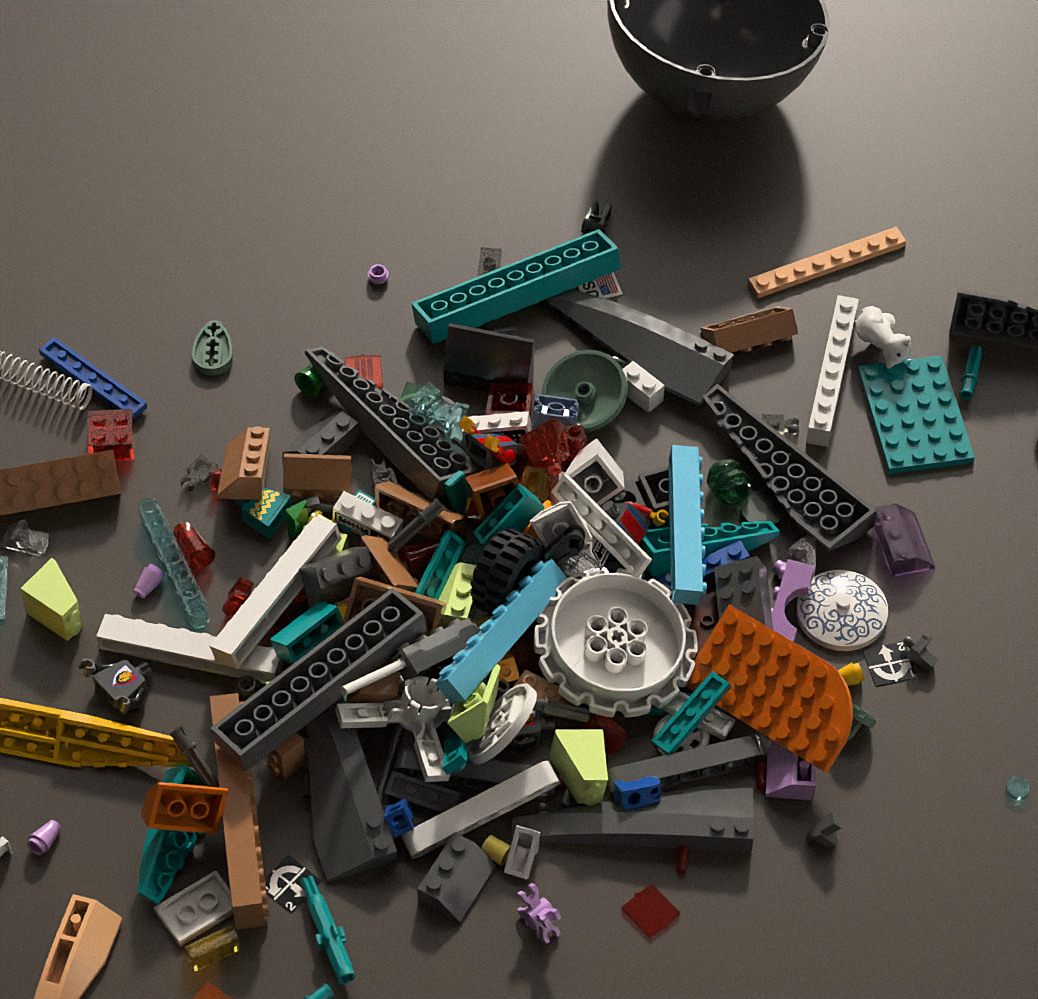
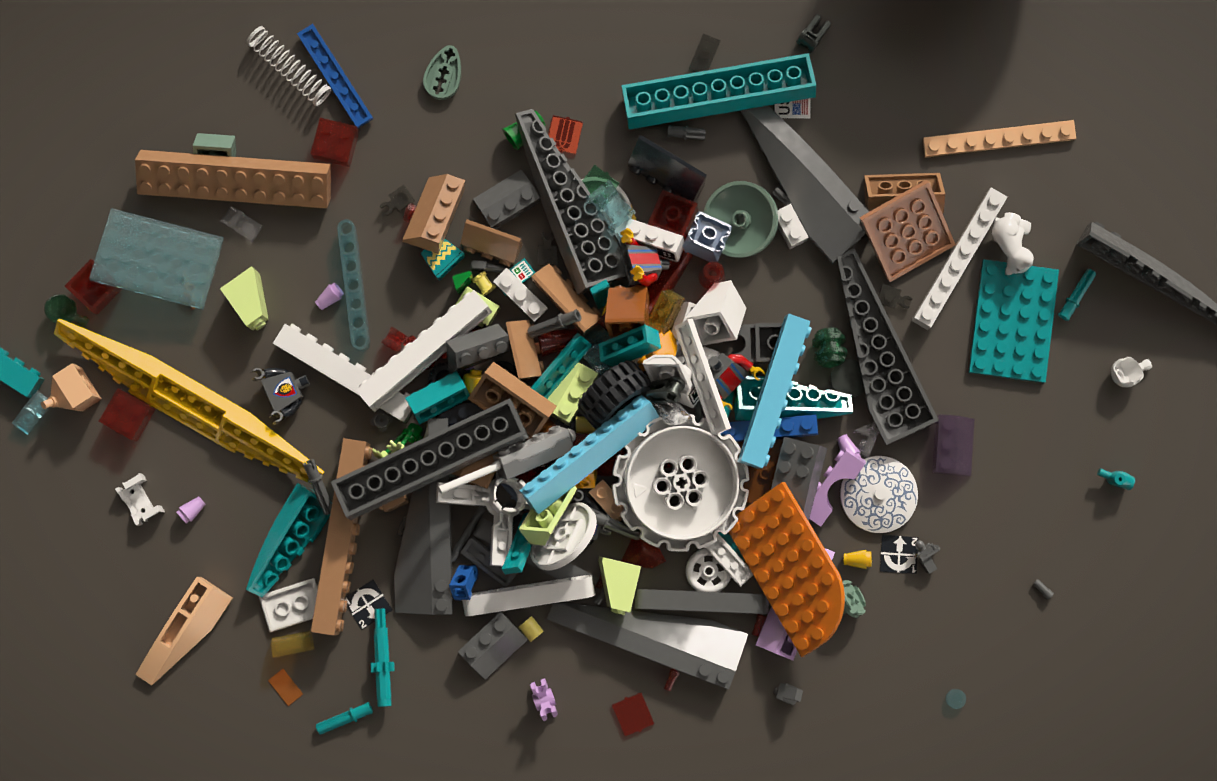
camera: 20 degrees right, 30 degrees up
(184, 807) = (294, 538): orange slope -> none
(194, 548) = (372, 274): clear red plant -> none
(378, 274) = (606, 30): lavender plate -> none
(522, 852) = (548, 641): white slope -> none
(547, 446) = (686, 279): clear red torso -> none
(637, 793) = (654, 619): blue leg -> none
(691, 713) = (719, 563): teal plate -> none
(767, 353) = (907, 231): none -> nougat plate

